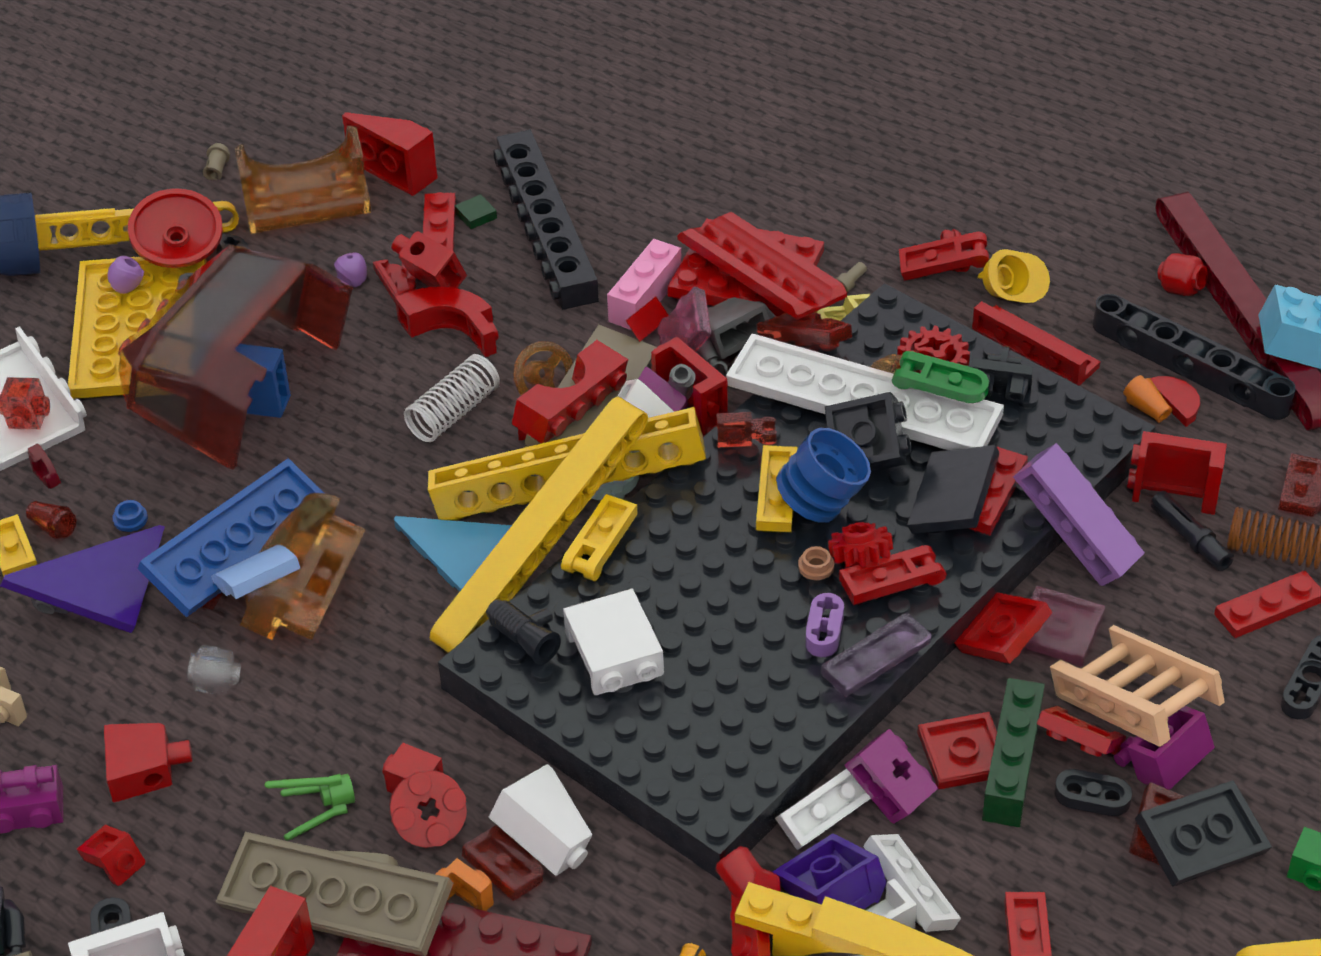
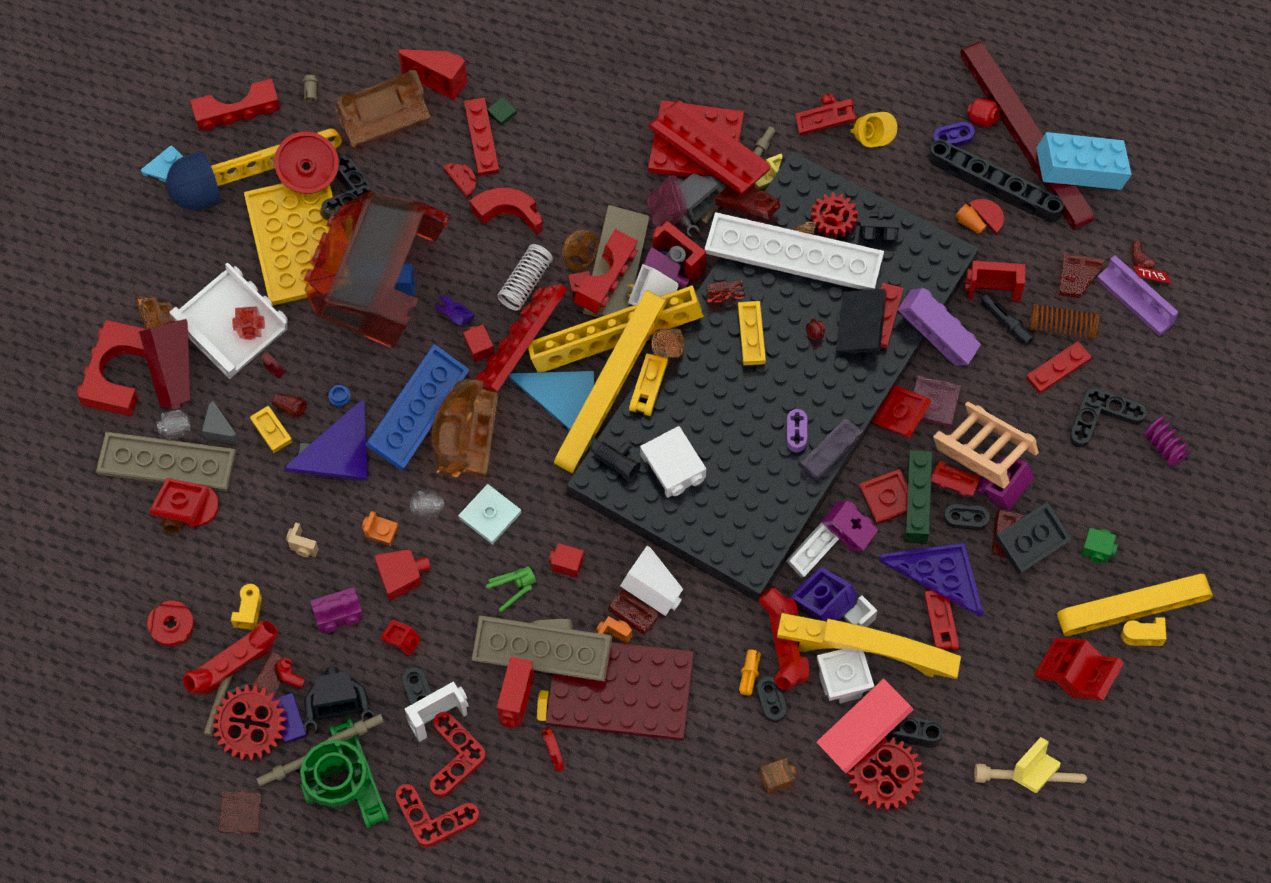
camera: 10 degrees left, 20 degrees up
(124, 274) = (282, 204): medium lavender piece -> none
(128, 696) = (379, 528): none -> orange bracket
(140, 165) = (259, 101): none -> red arch
(256, 571) = (441, 438): light blue slope -> none
(310, 698) = (490, 514): none -> light aqua plate
(339, 433) = (457, 312): none -> dark purple plate
(351, 269) = (430, 176): medium lavender piece -> none
(359, 472) = (478, 343): none -> red brick
(422, 462) = (520, 336): none -> red plate
(429, 260) = (492, 172): red torso -> none
(436, 829) = (588, 596): red plate -> none
(546, 220) = (523, 54): black brick -> none
(640, 481) = (667, 343): none -> clear orange piece
(643, 281) = (631, 166): bright pink brick -> none
(647, 318) = (639, 194): red sticker -> none
(816, 563) = (784, 381): nougat plate -> none
(823, 475) = (781, 327): blue wheel -> none
(860, 544) = (810, 371): red gear -> none
(874, 427) = (802, 287): black plate -> none
(879, 494) = (815, 329): none -> clear red plate
(892, 574) = (831, 389): red plate -> none
(898, 862) = (867, 587): white plate -> none
(941, 378) = (843, 238): green plate -> none
(1033, 343) = (891, 184): red fence -> none
(1040, 864) = (941, 570): none -> dark purple tile
(1144, 294) = (953, 131): none -> dark purple plate

